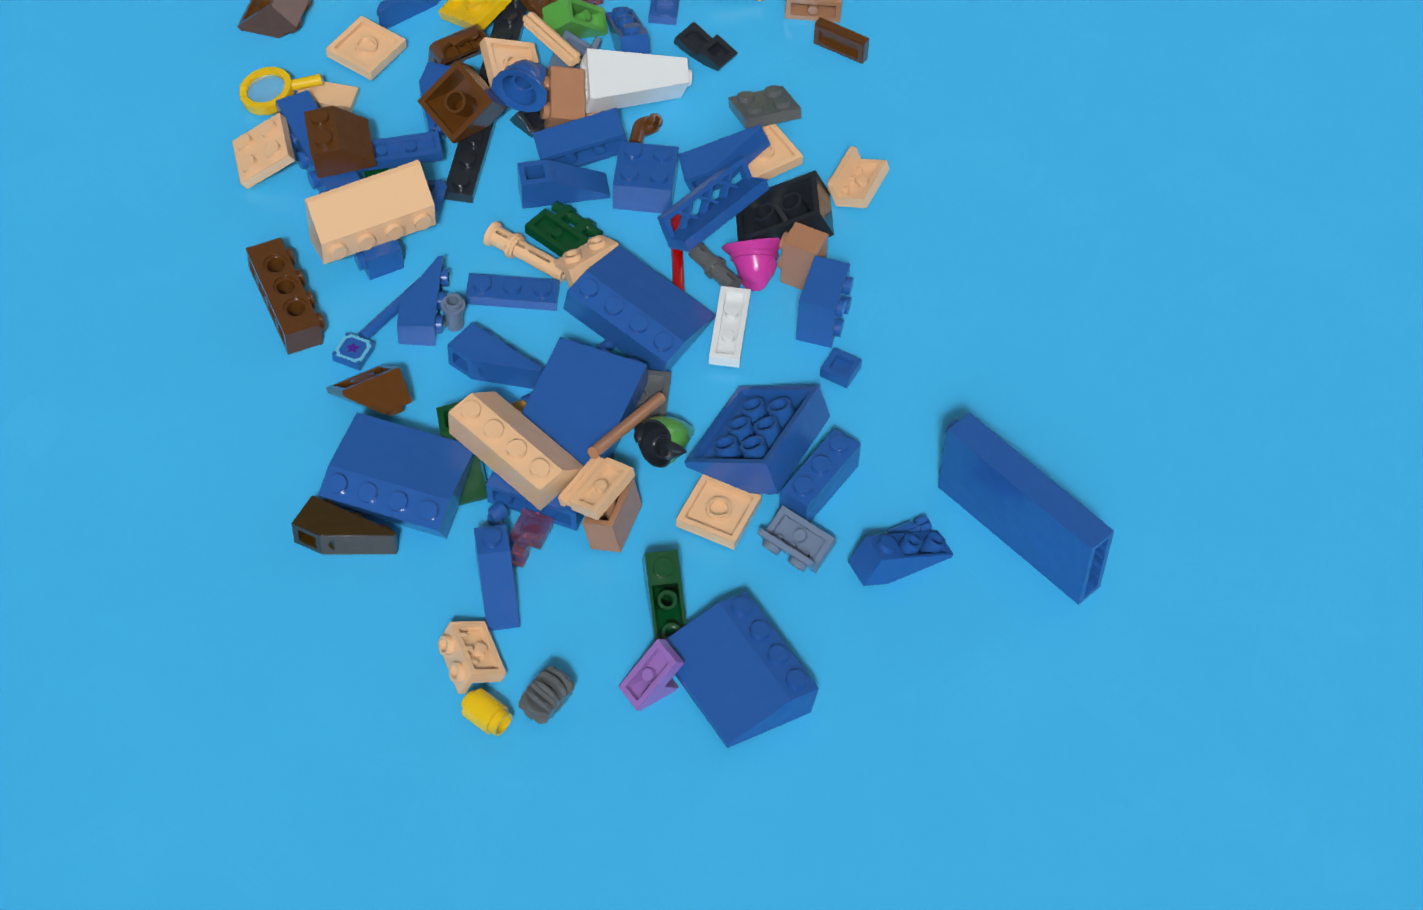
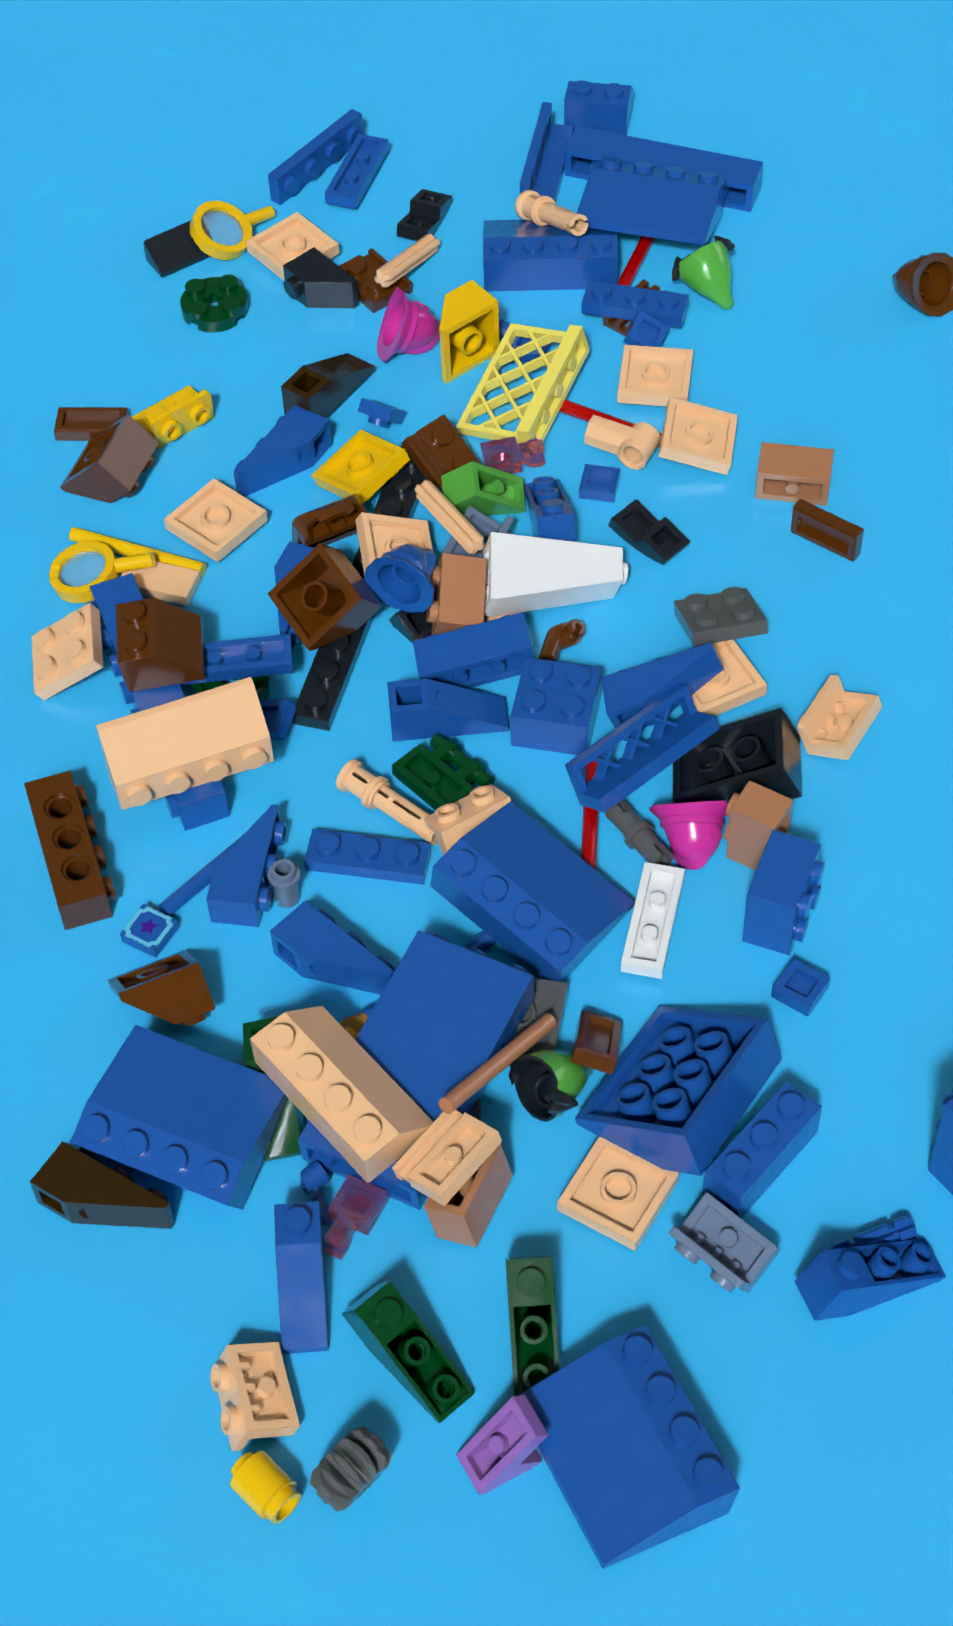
camera: 10 degrees right, 0 degrees up
(298, 72) = (128, 549): none -> yellow bar
(577, 620) = (408, 1350): none -> dark green slope
(695, 410) = (596, 1042): none -> reddish brown tile

